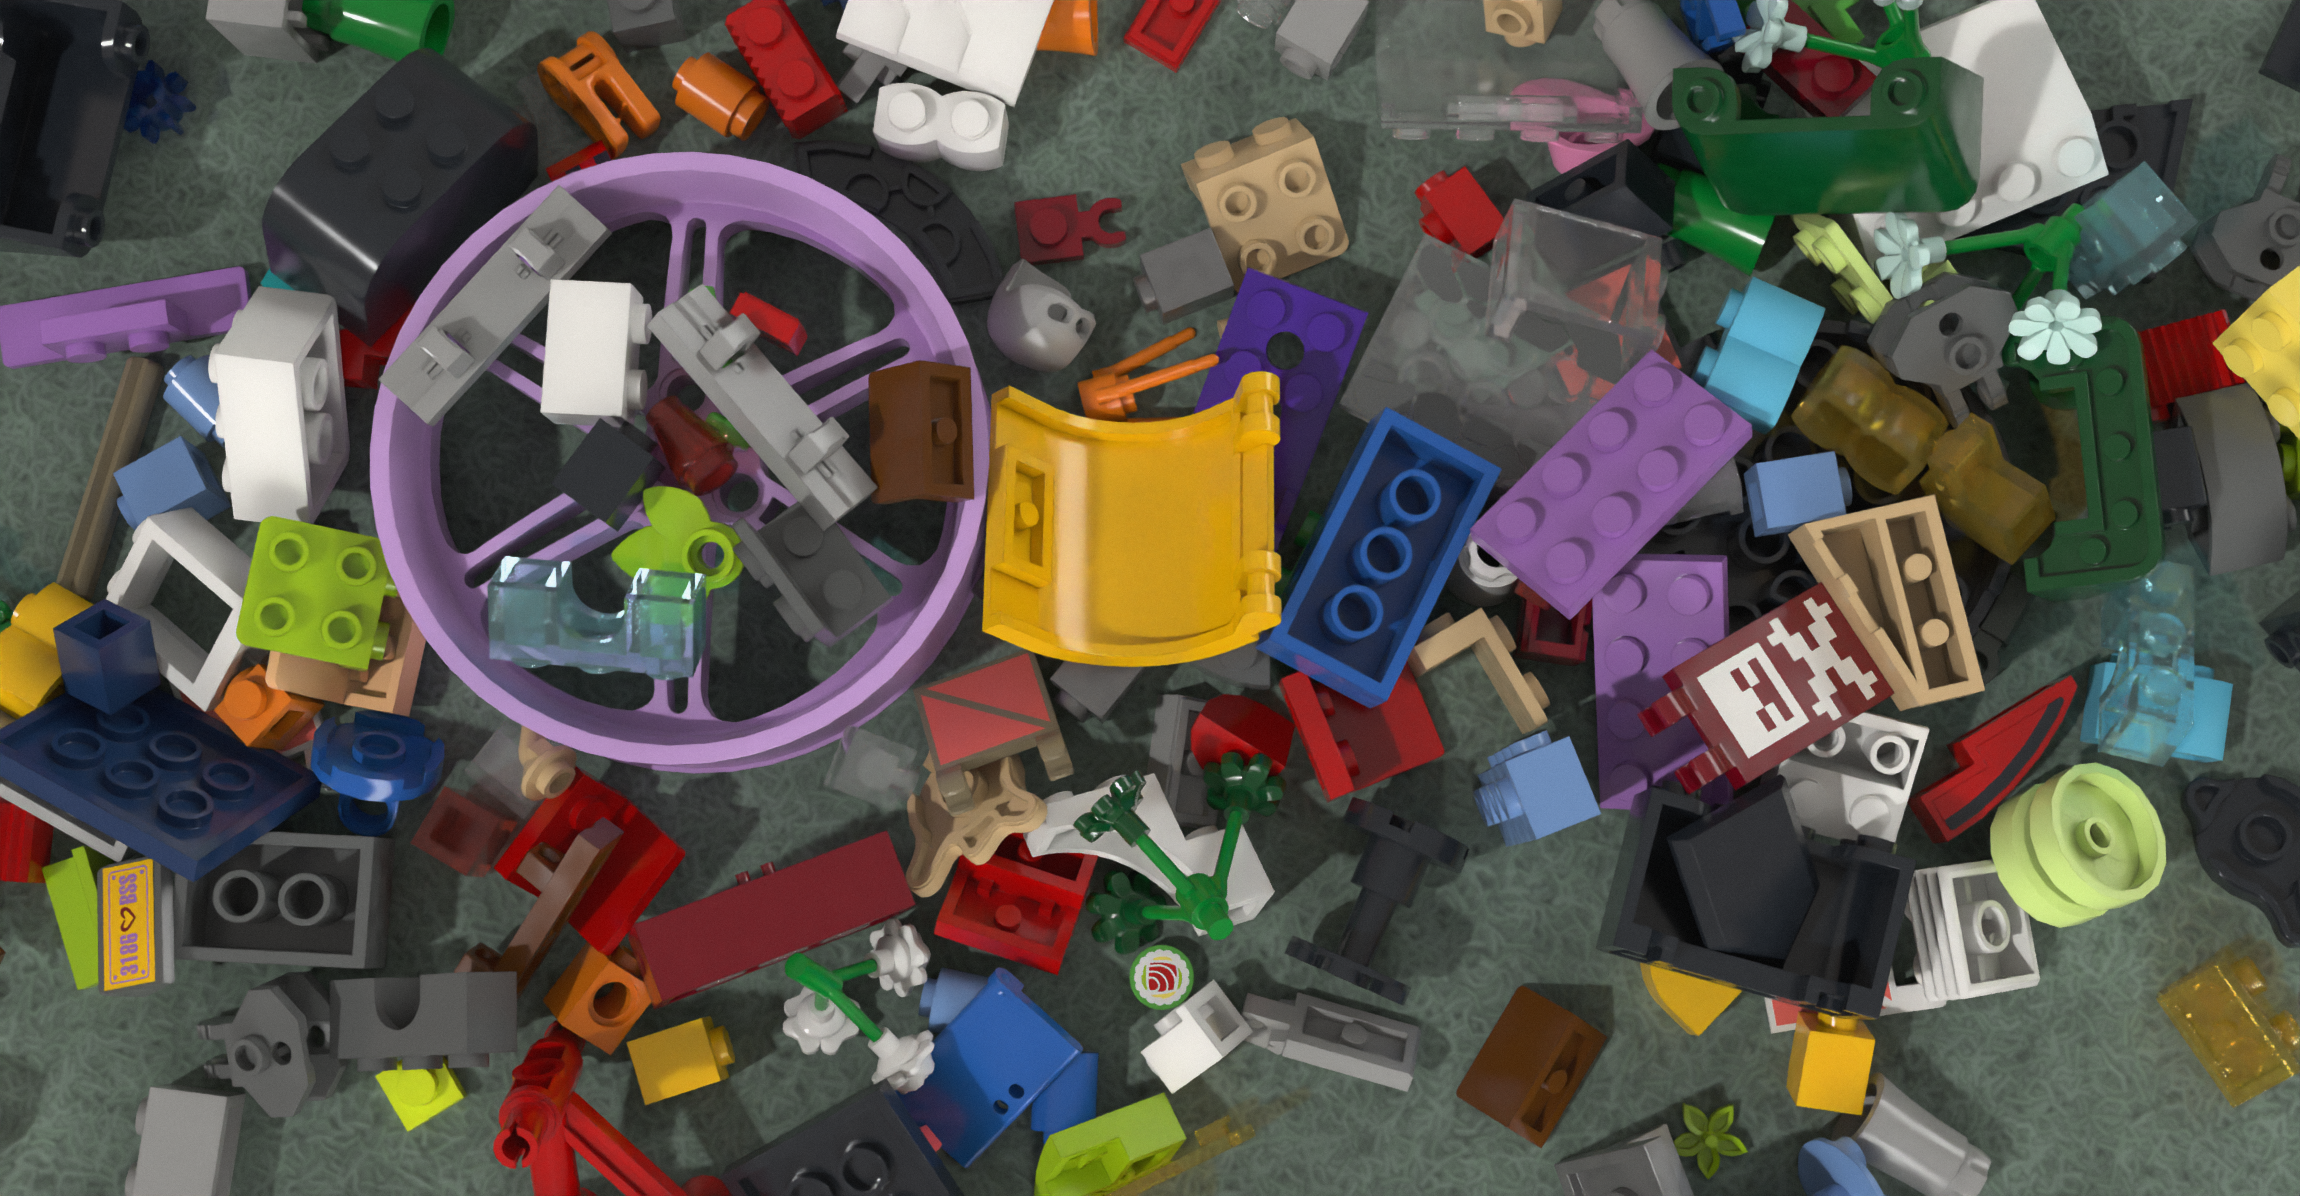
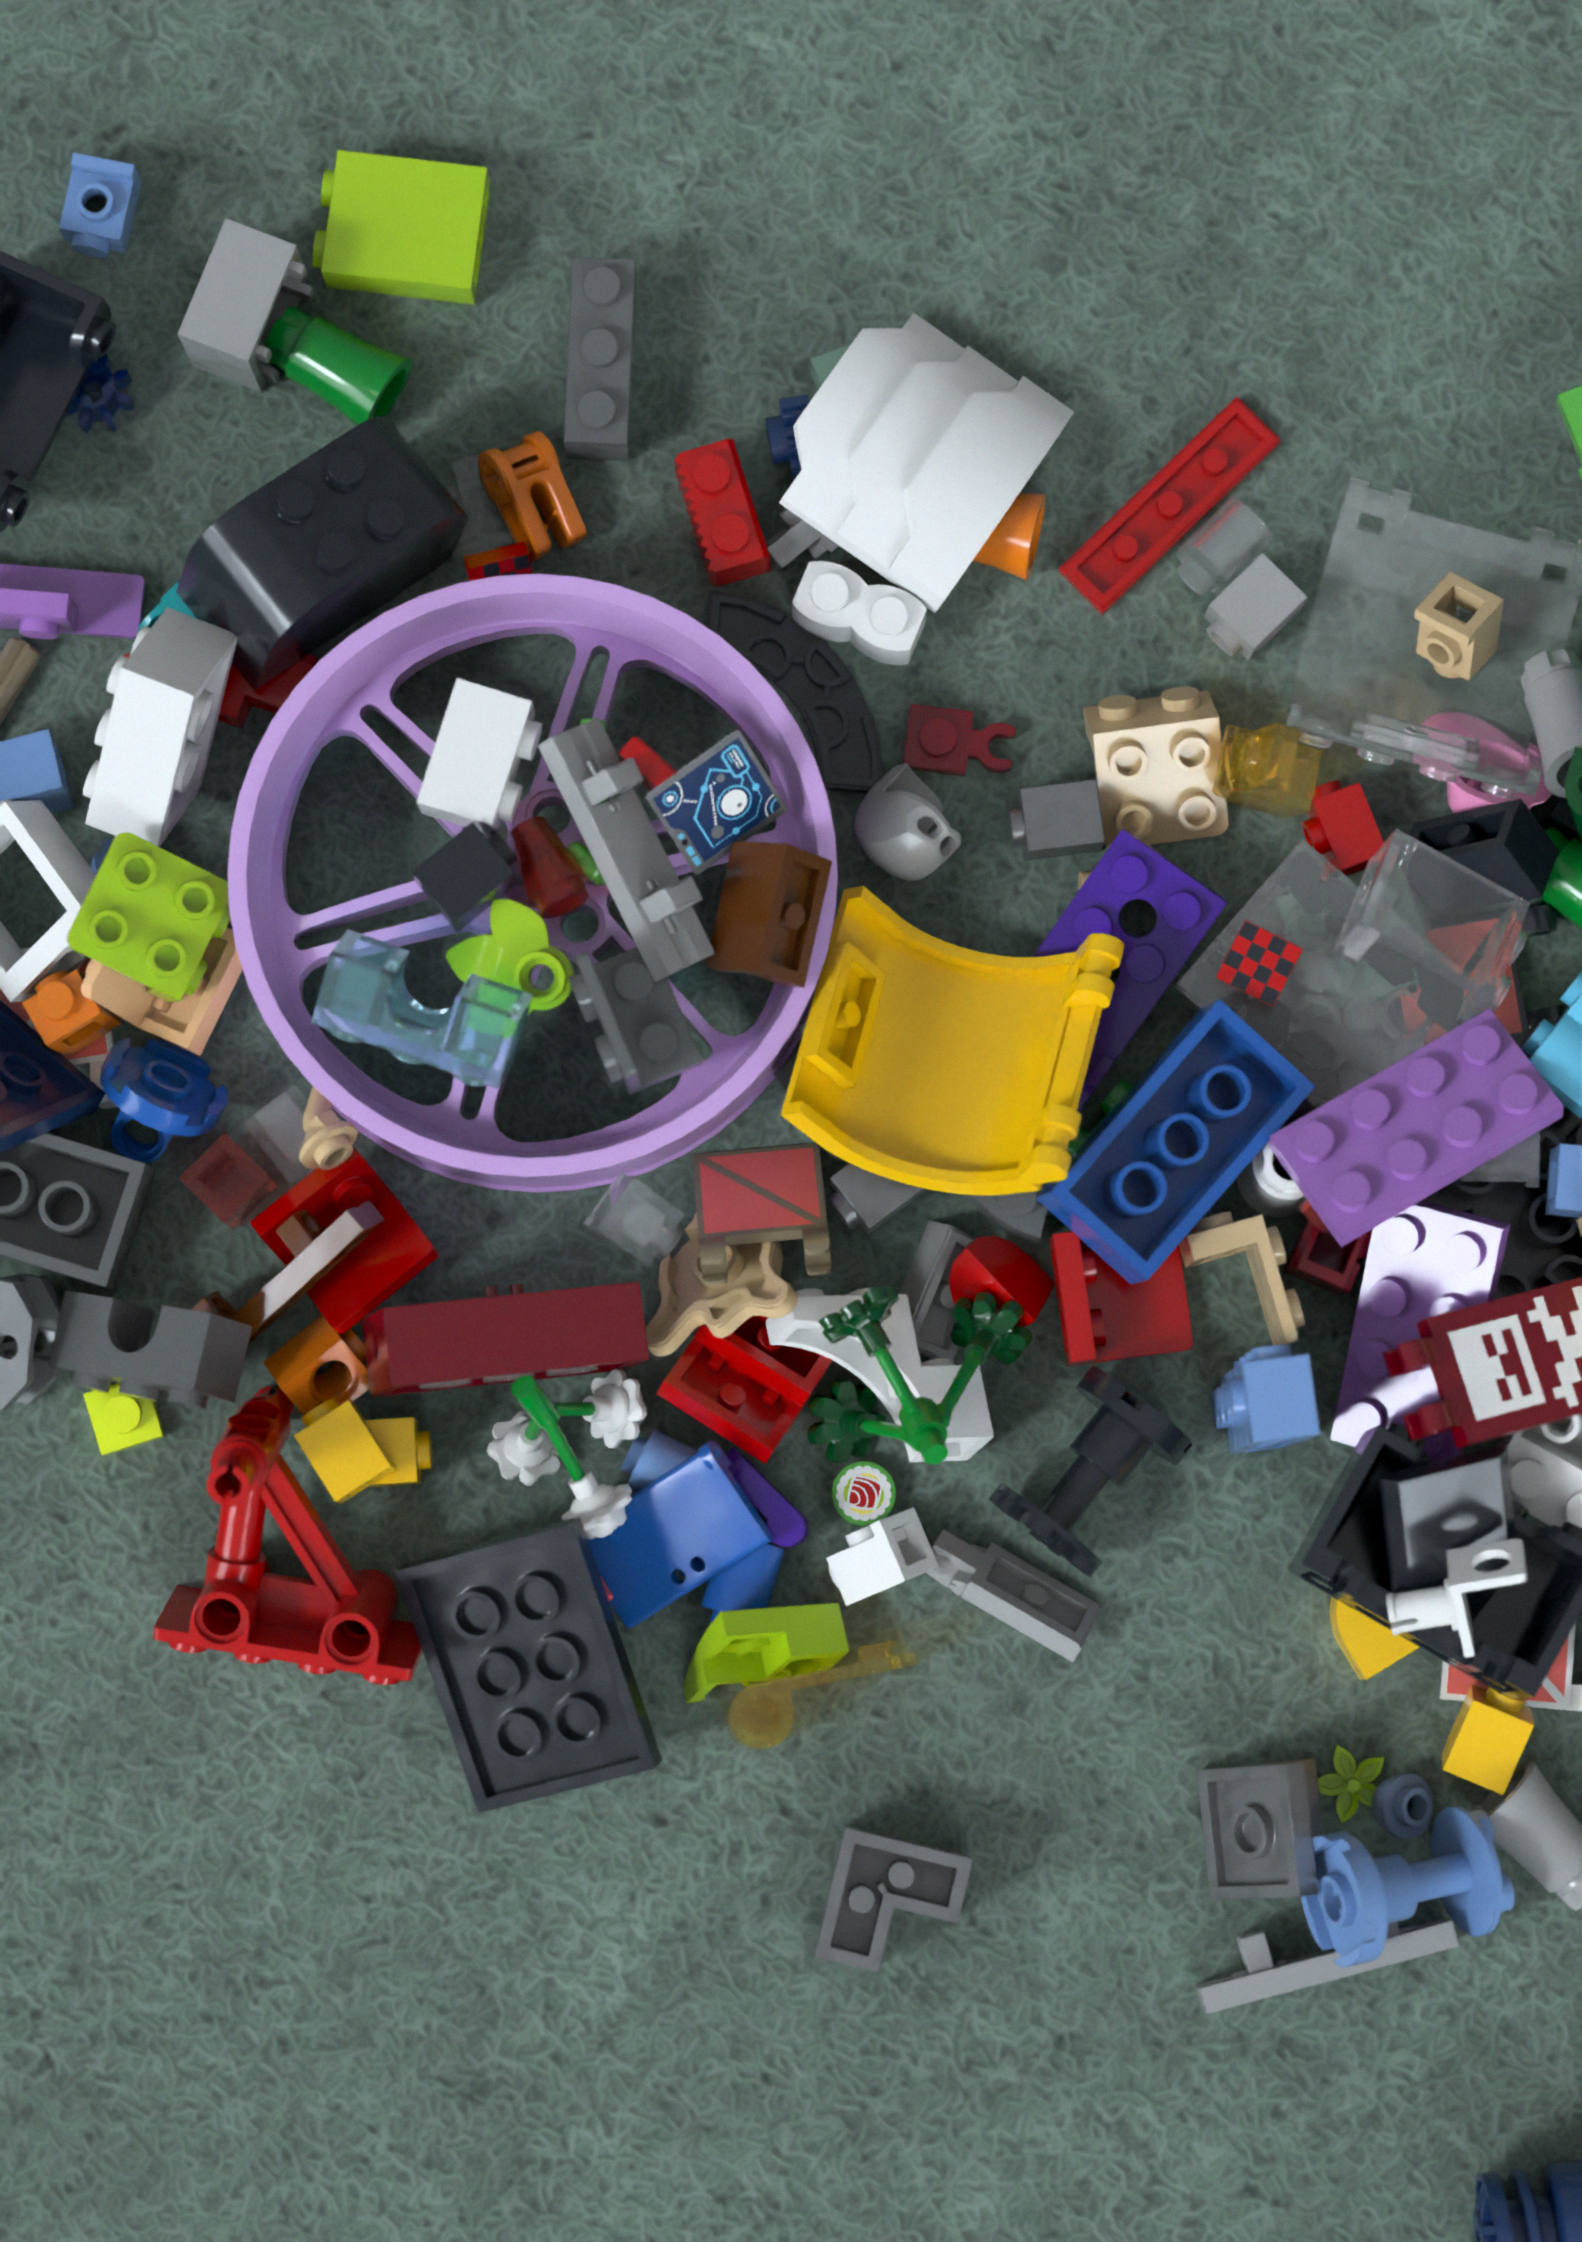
camera: 10 degrees right, 0 degrees up
(194, 395) = (76, 696): medium blue brick -> none
(494, 306) = (392, 686): light grey hinge -> none
(636, 1070) = (342, 1449): none -> yellow brick
(720, 96) = (649, 527): orange brick -> none
(840, 337) = (716, 802): none -> sticker
(1091, 1024) = (784, 1520): none -> dark purple plate
(1111, 394) = (958, 916): orange plant -> none
(1373, 176) = (1267, 770): none -> clear yellow brick
(1415, 362) = (1259, 963): none -> tile
(1531, 1065) = (1199, 1669): reddish brown panel -> none
(1764, 1148) = (1391, 1802): none -> sand blue plate
(1765, 945) = (1449, 1602): none -> white bracket

